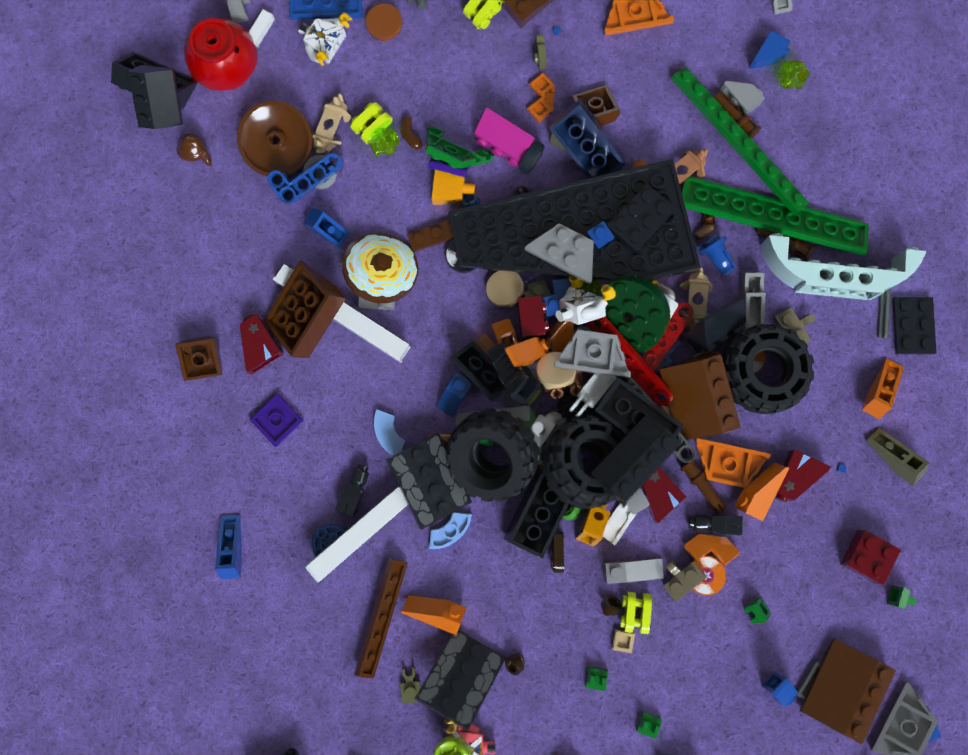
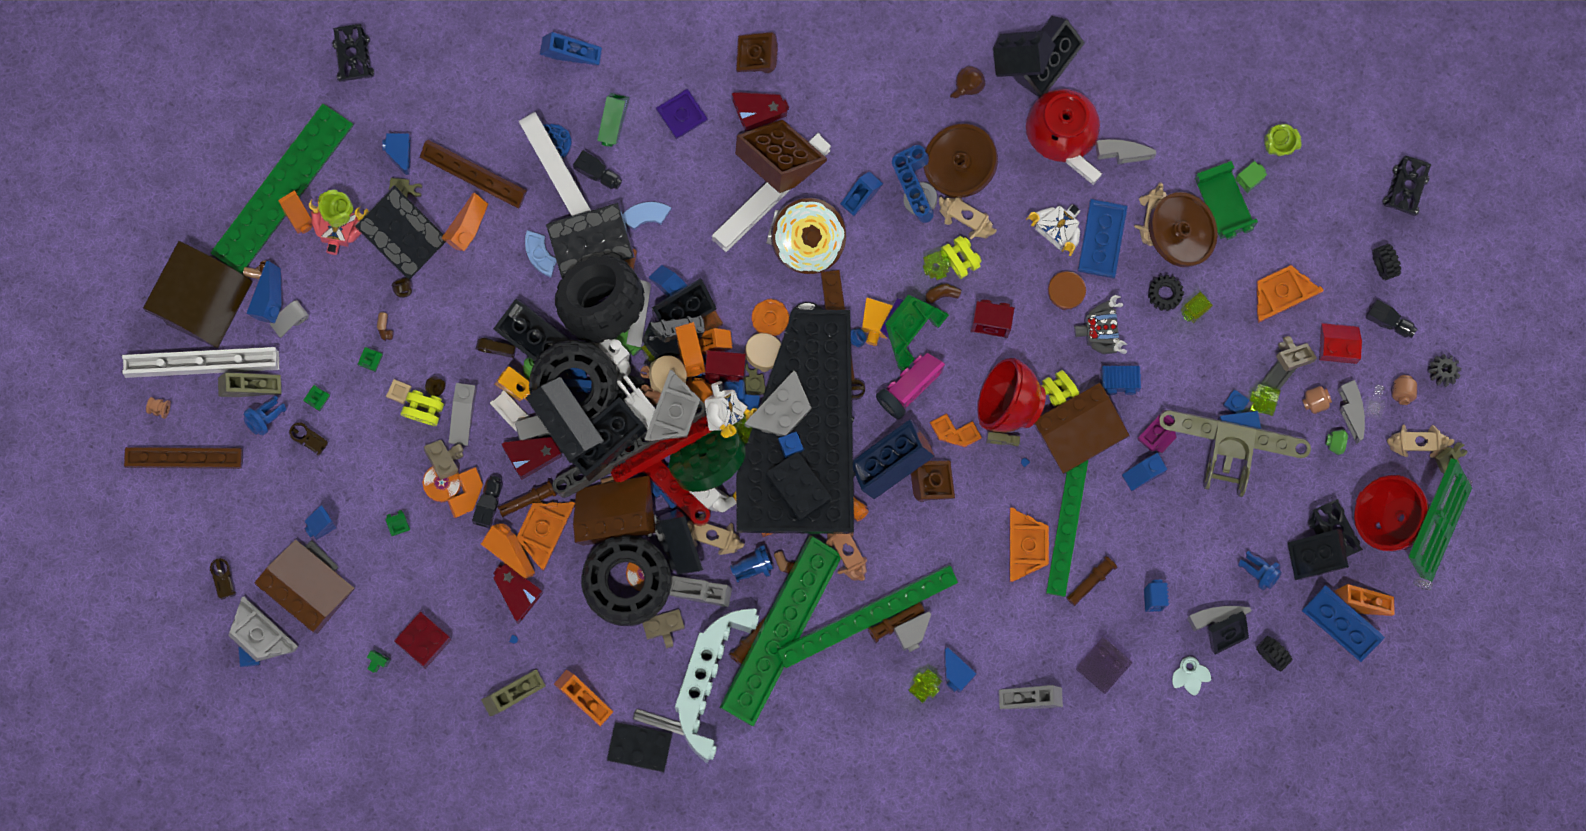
camera: 90 degrees right, 5 degrees down
(295, 486) = (612, 119): none -> green slope
(370, 702) = (398, 150): none -> blue slope
(427, 78) = (992, 318): none -> dark red brick
(463, 293) = (764, 319): none -> orange tile
(490, 46) = (1010, 397): none -> red piece
(561, 674) = (382, 329): none -> arm
(693, 720) = (310, 440): none -> dark brown piece

